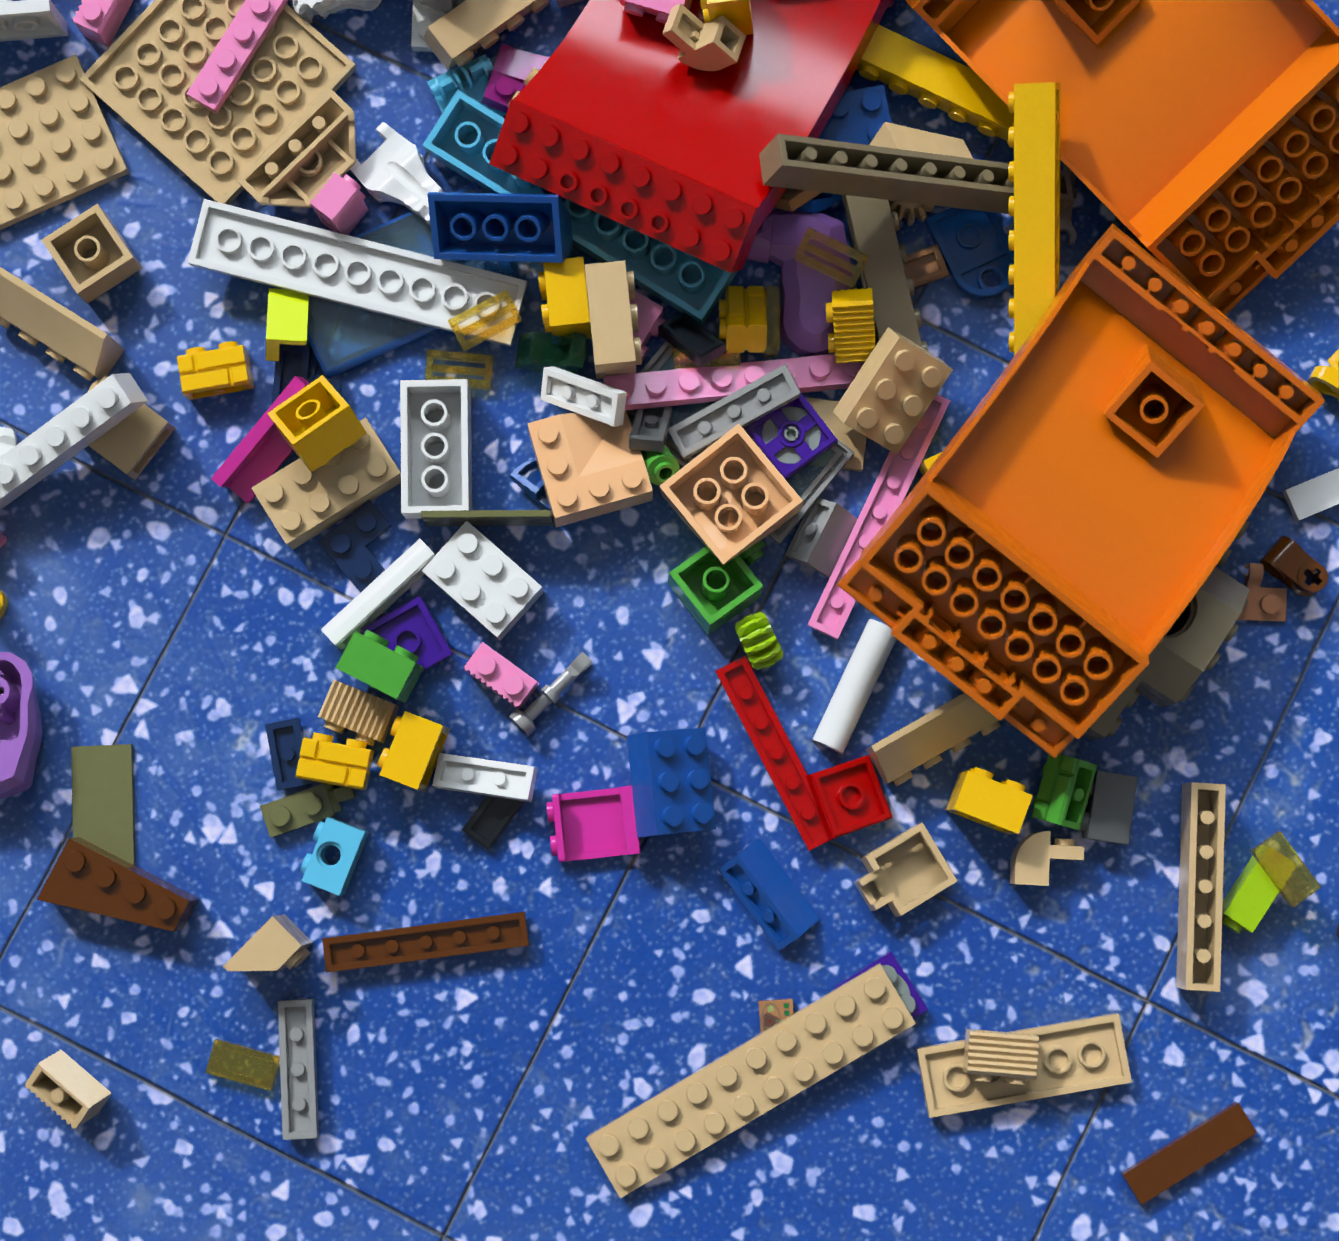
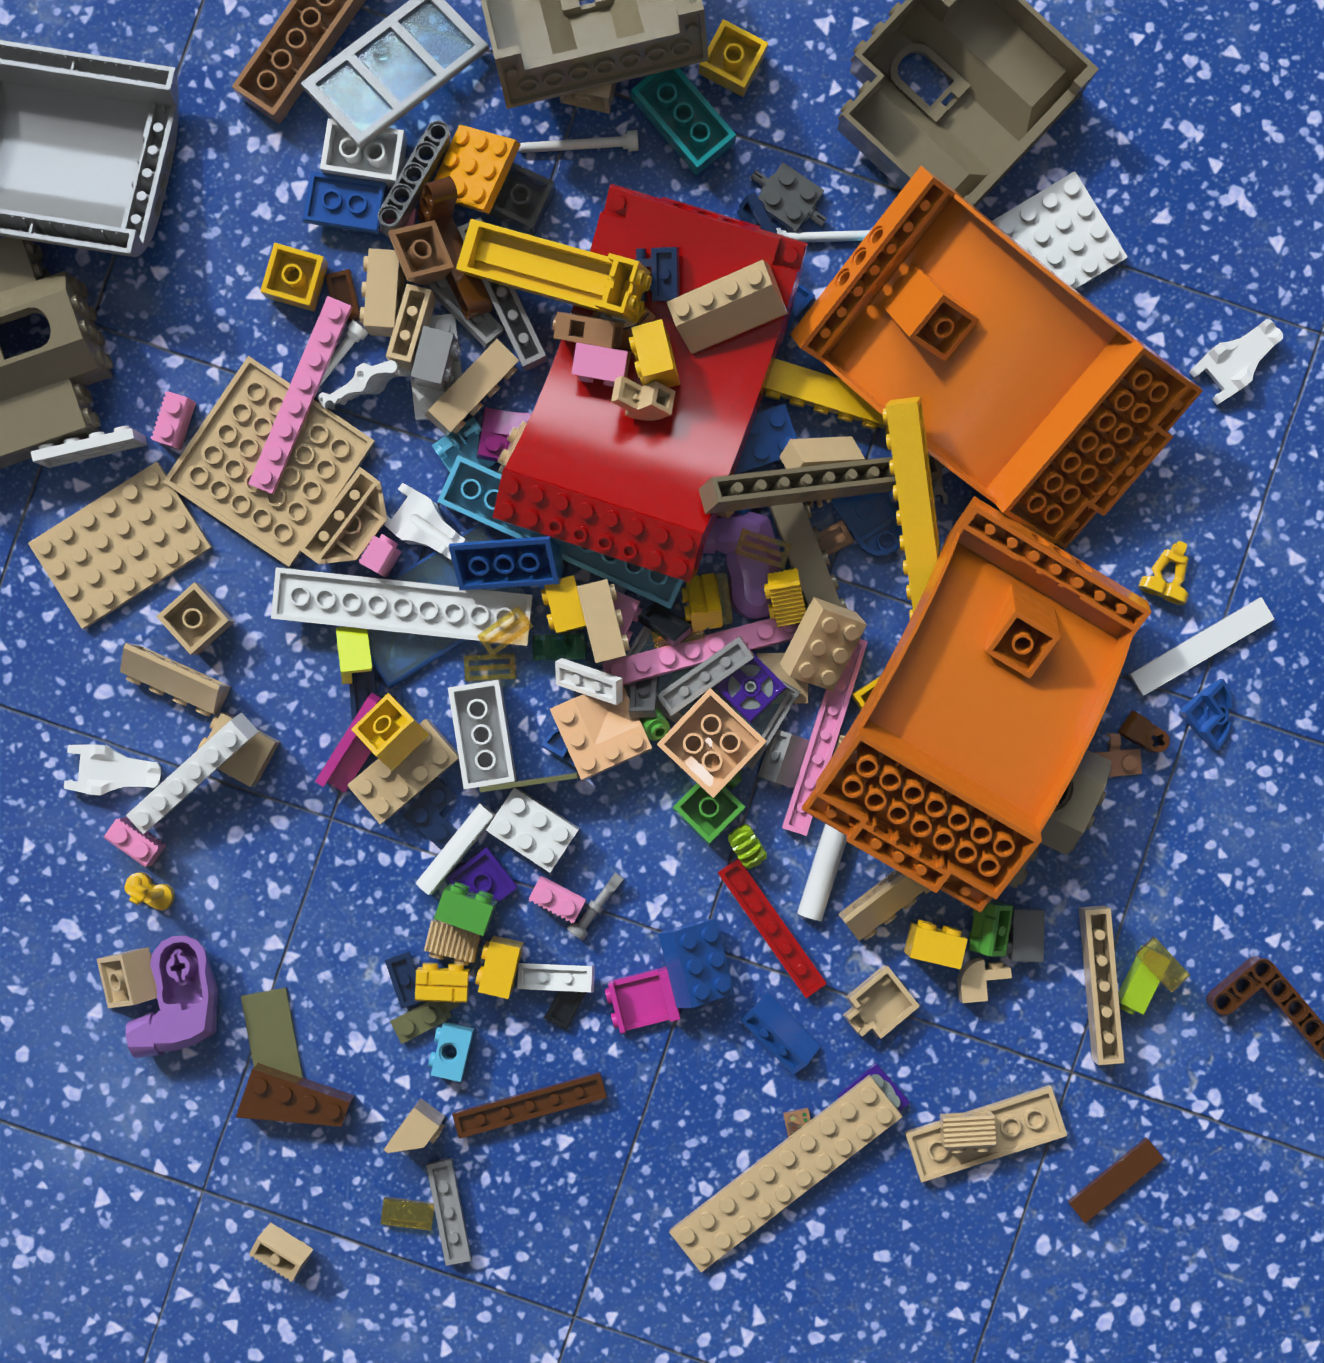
camera: 10 degrees left, 5 degrees up
(215, 371) = (304, 696): yellow brick -> none
(849, 797) = (830, 953): red tile -> none

